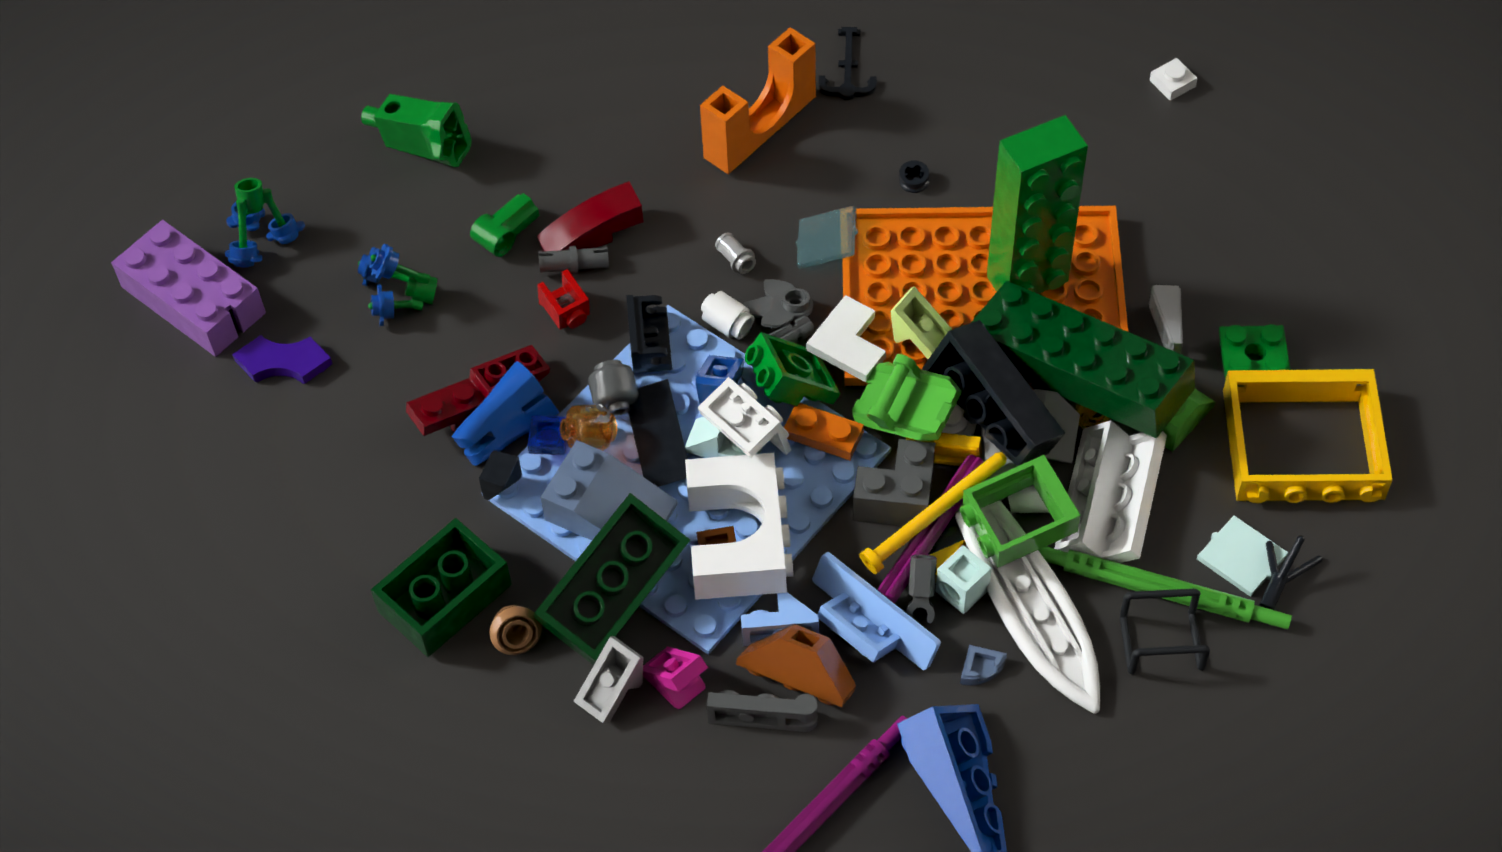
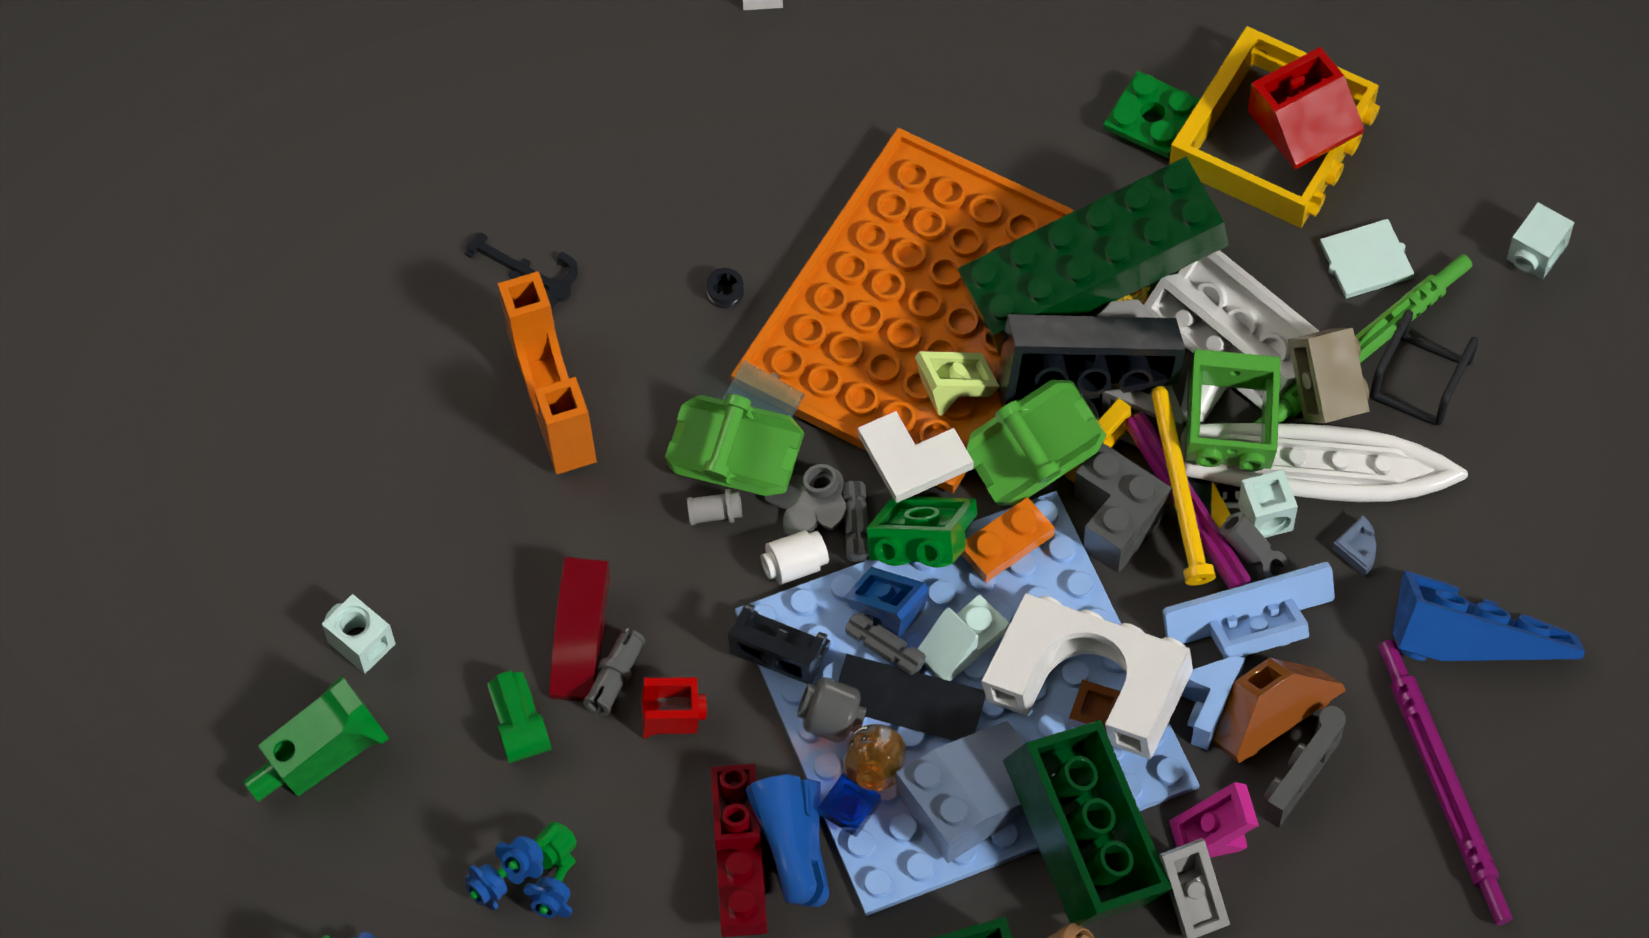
camera: 60 degrees left, 5 degrees up
(499, 473) = (877, 876): black slope -> none
(512, 112) = (368, 646): none -> light aqua brick
(687, 398) = (885, 643): none -> dark grey axle
(744, 420) = (977, 596): white bracket -> none
(787, 238) = (734, 444): none -> bright green shield
(1036, 206) = (941, 183): green brick -> none
(1101, 566) = (1329, 375): none -> dark tan brick
(1167, 315) = (1068, 162): light grey slope -> none
(1282, 577) = (1417, 242): black plant -> none
(1320, 433) = (1305, 108): none -> red slope
(1344, 663) = (1540, 241): none -> light aqua brick

